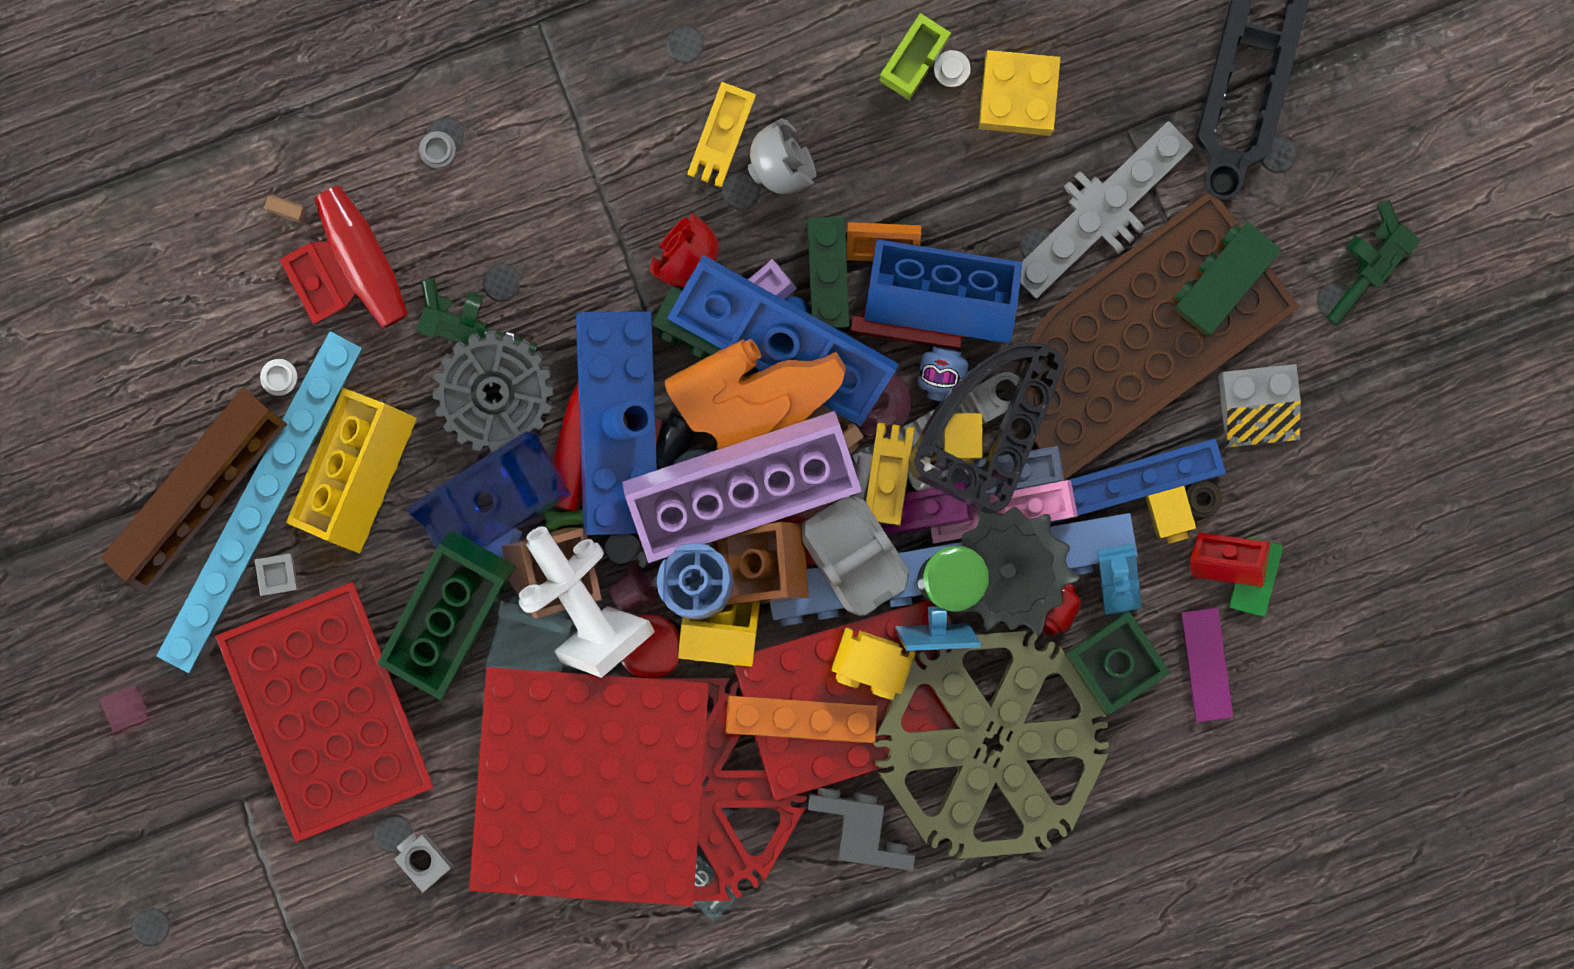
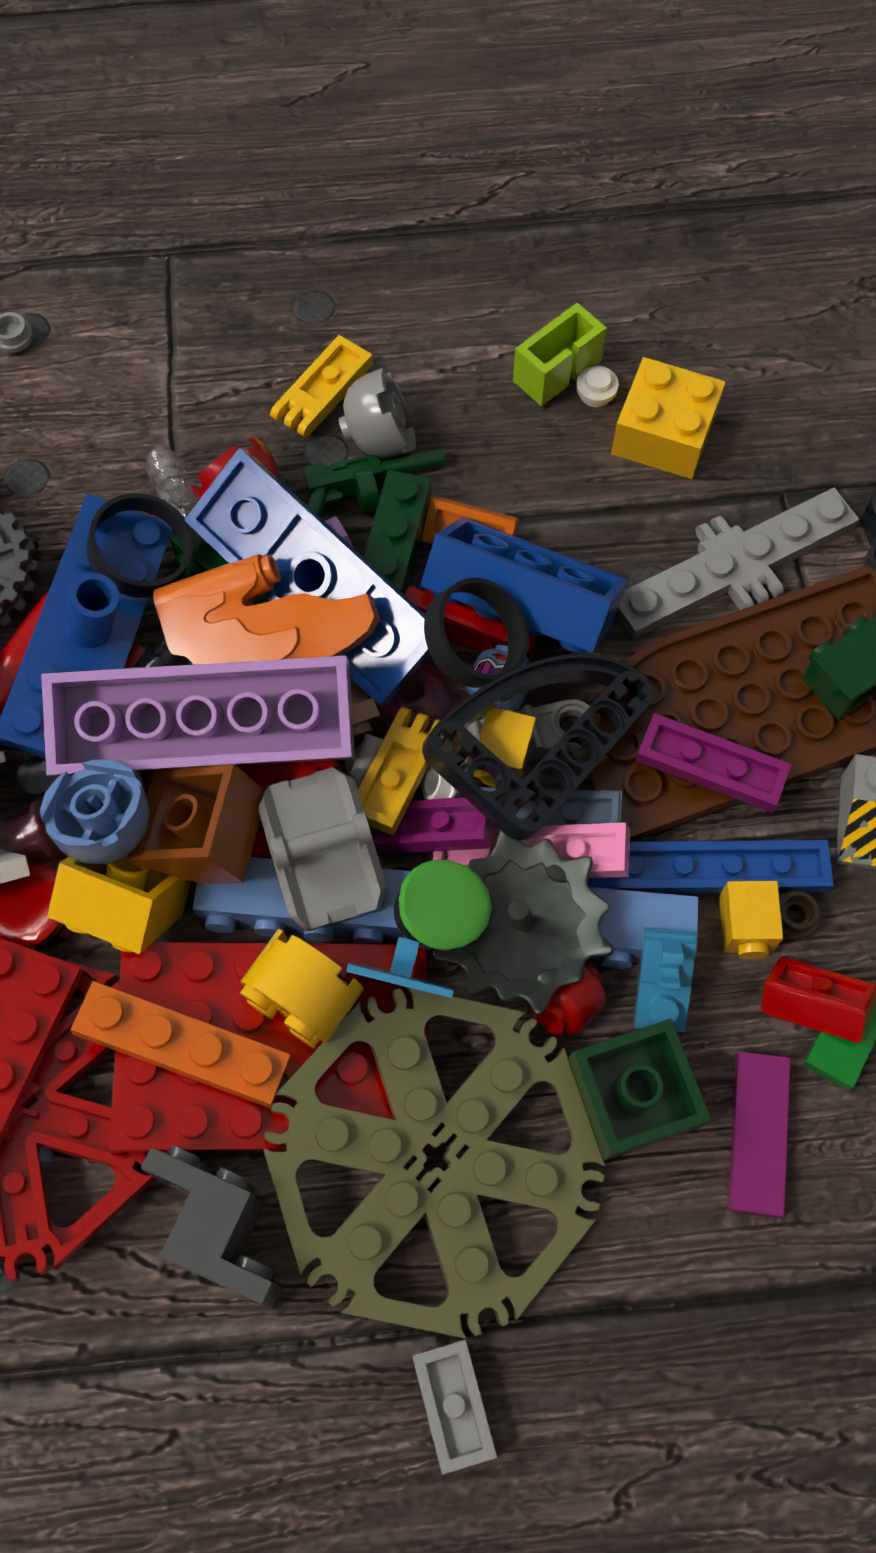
camera: 15 degrees right, 20 degrees down
(633, 274) = (167, 477): none -> clear plate
(675, 345) = (152, 505): none -> black tyre
(779, 214) = (361, 477): none -> dark green piece
(952, 353) = (508, 612): none -> black tyre
(1045, 893) = (454, 1407): none -> light grey plate
(1119, 404) = (713, 762): none -> magenta plate

